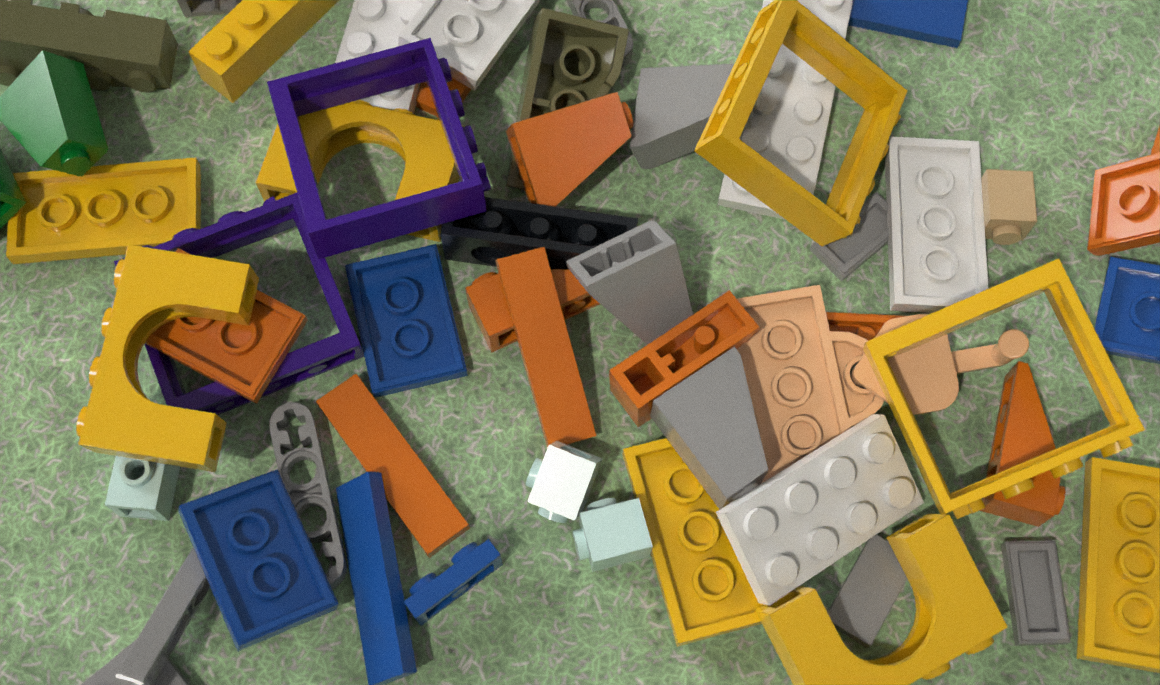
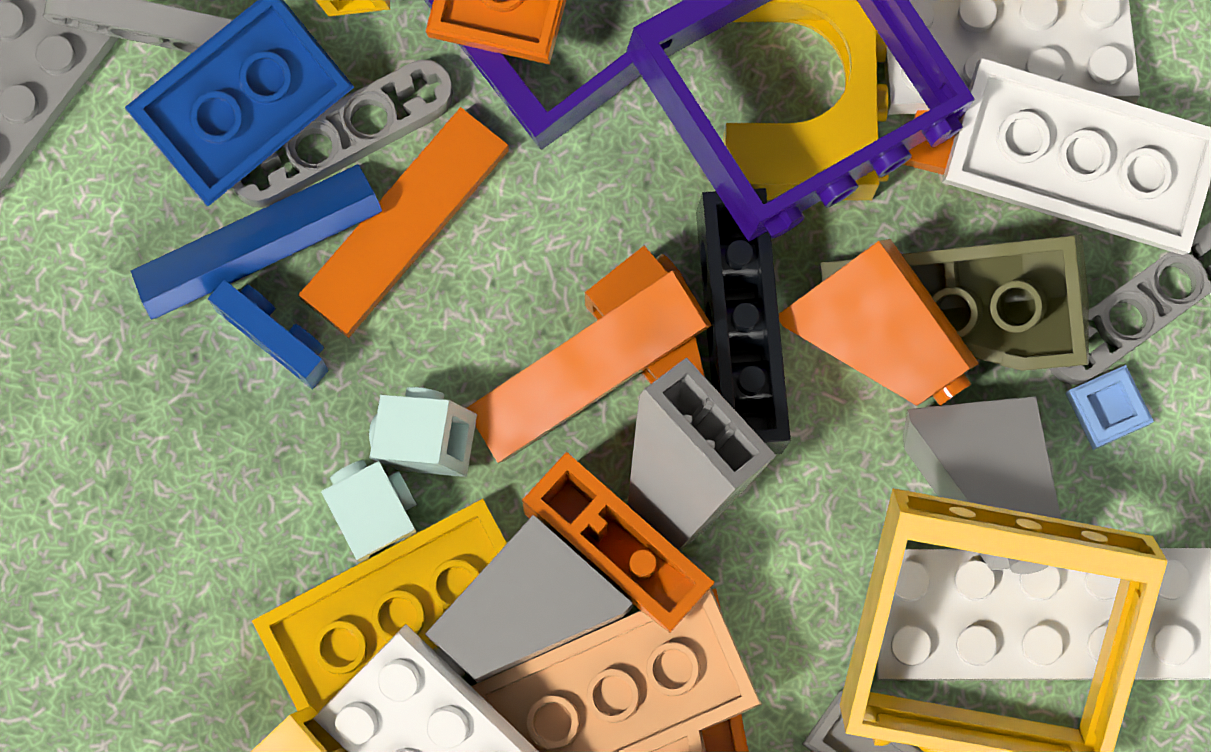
camera: 75 degrees right, 10 degrees up
(405, 321) = (599, 186): blue tile -> none
(653, 39) = (1109, 407): none -> light blue tile

